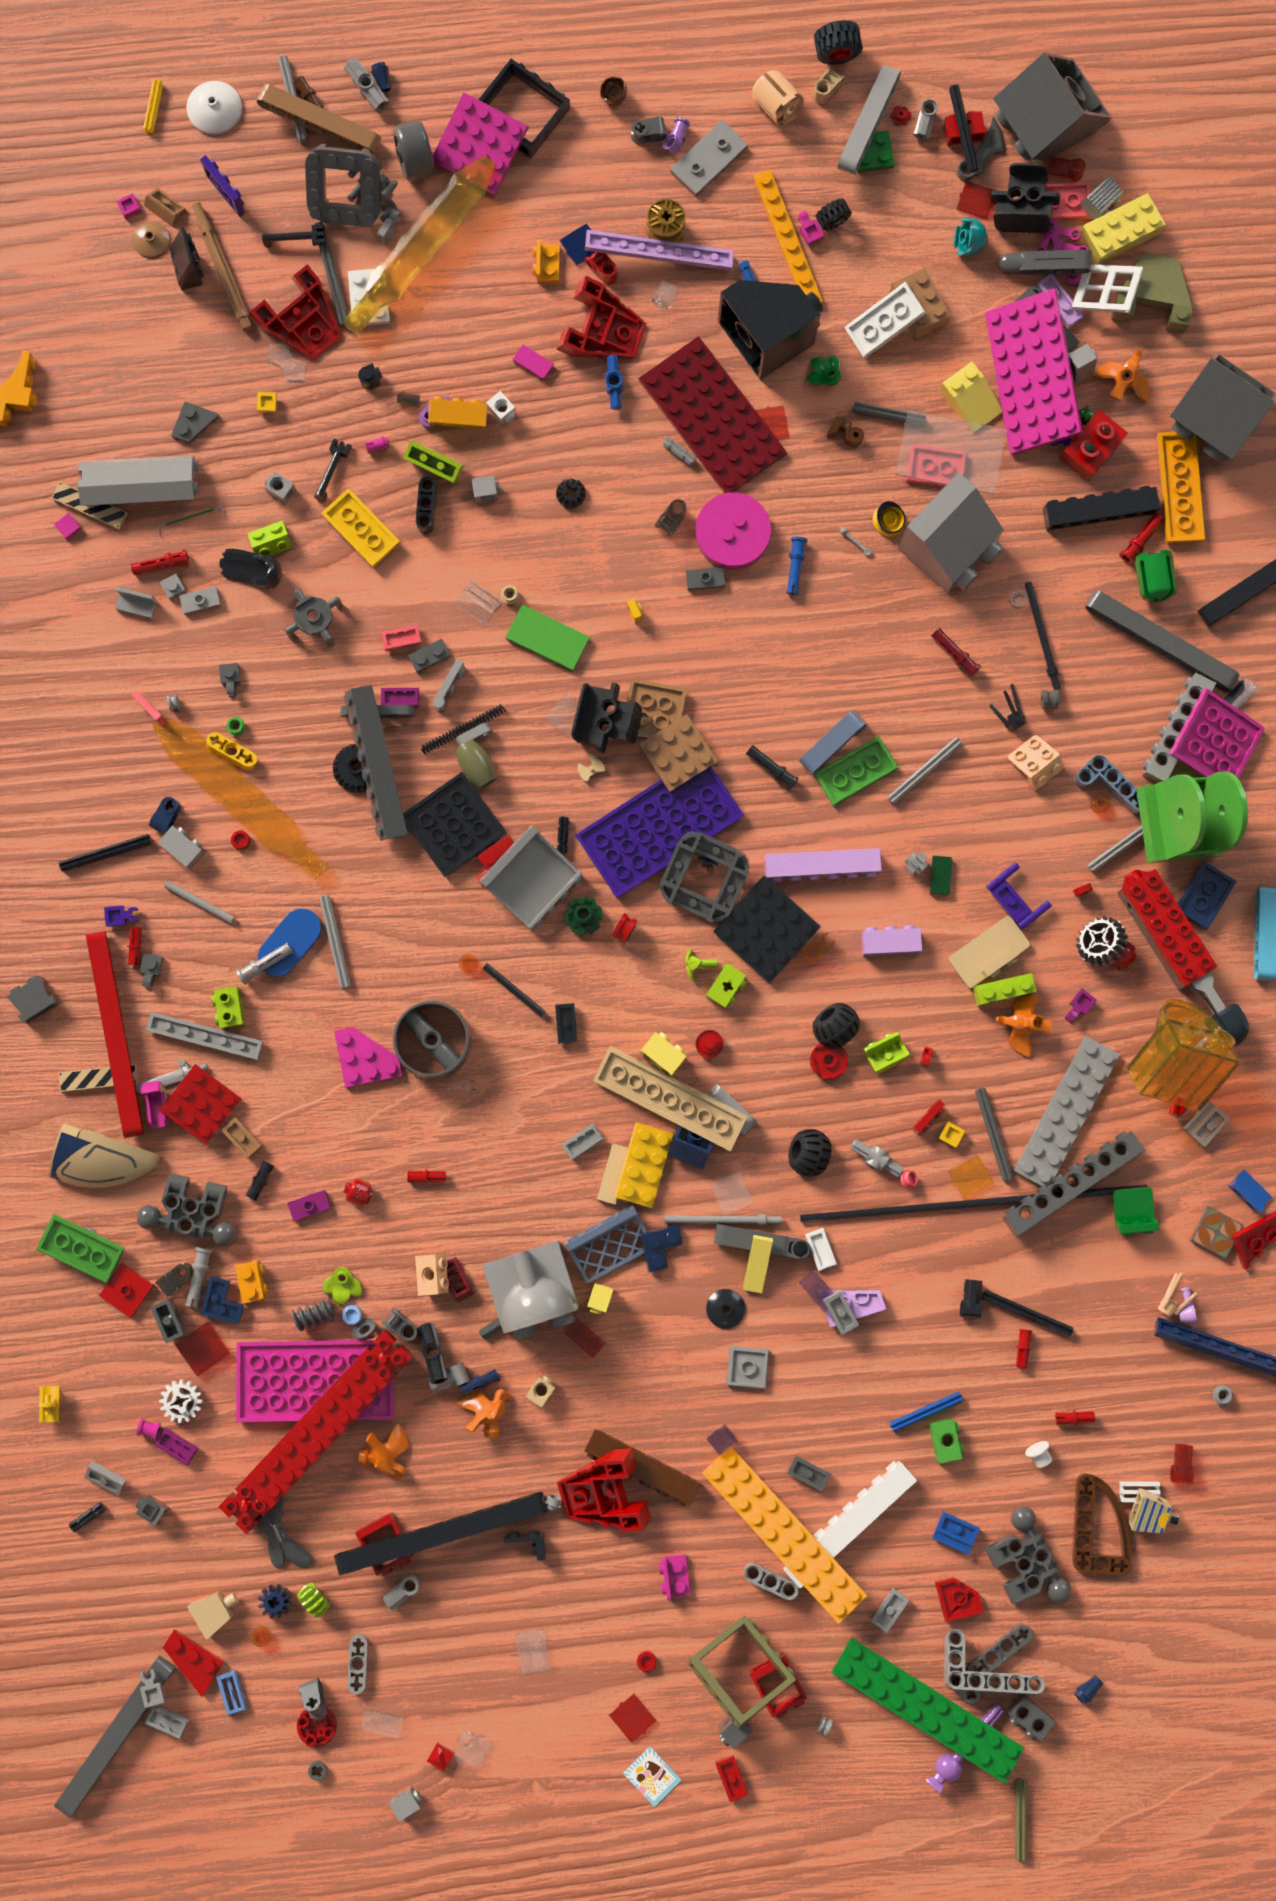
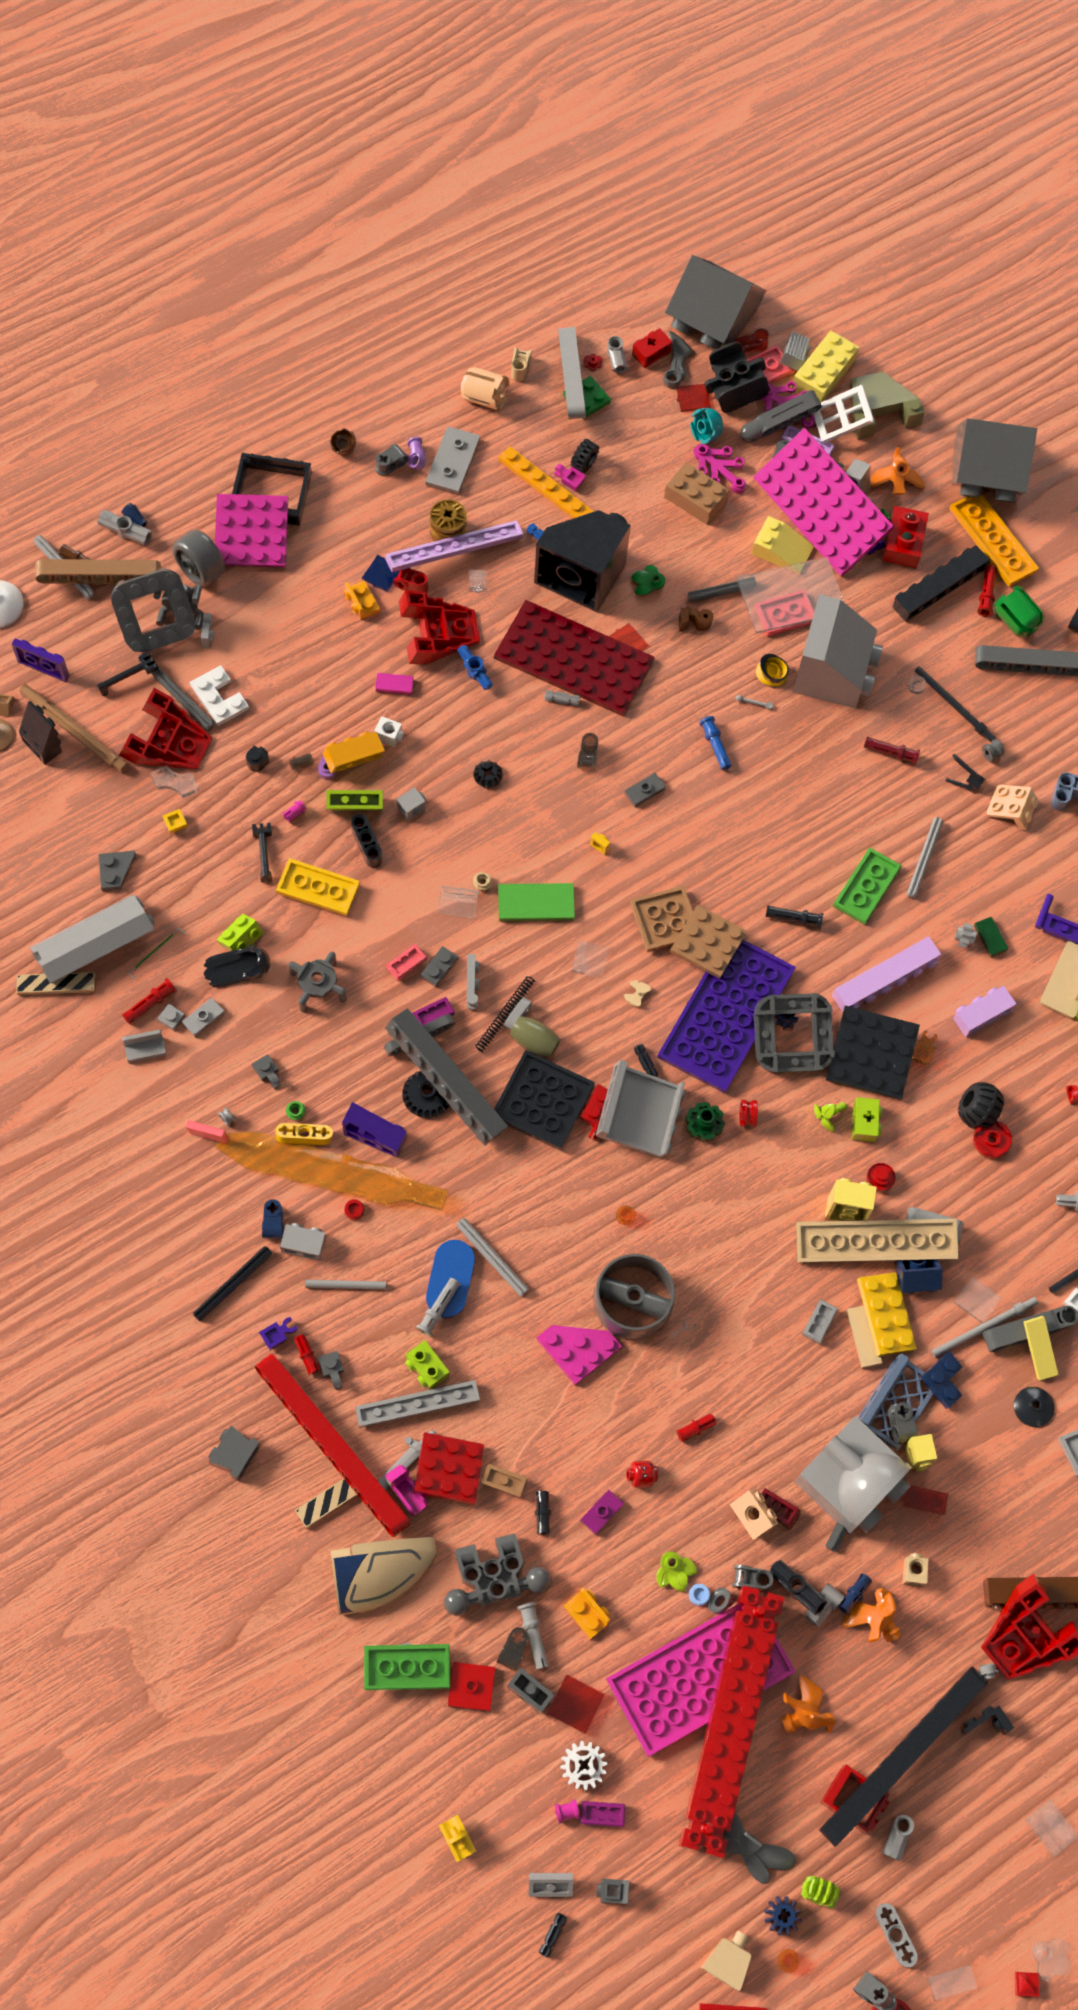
camera: 30 degrees left, 15 degrees down
(67, 526) = (44, 1010): dark pink tile -> none
(217, 1306) = (568, 1654): dark blue plate -> none
(285, 493) = (231, 891): light grey brick -> none
(291, 779) = (373, 1130): none -> dark purple wedge
(313, 1314) = (664, 1611): dark grey piece -> none
(422, 241) = (244, 628): clear yellow plate -> none
(514, 990) = (679, 1218): black bar -> none
(566, 1023) = (744, 1223): black plate -> none
(592, 716) = (618, 943): black piece -> none
(599, 1268) = (902, 1425): none -> dark grey piece
(733, 531) = (646, 740): dark pink brick -> none
(810, 1152) = (1025, 1227): black wheel -> none
(833, 741) = (835, 869): sand blue beam -> none
(838, 42) = (512, 325): black wheel -> none
(885, 320) = (677, 516): white tile -> none
(886, 1053) = (1038, 1107): lime bracket -> none
(958, 284) = (719, 465): none -> dark pink plant
(963, 128) = (654, 346): black axle -> none

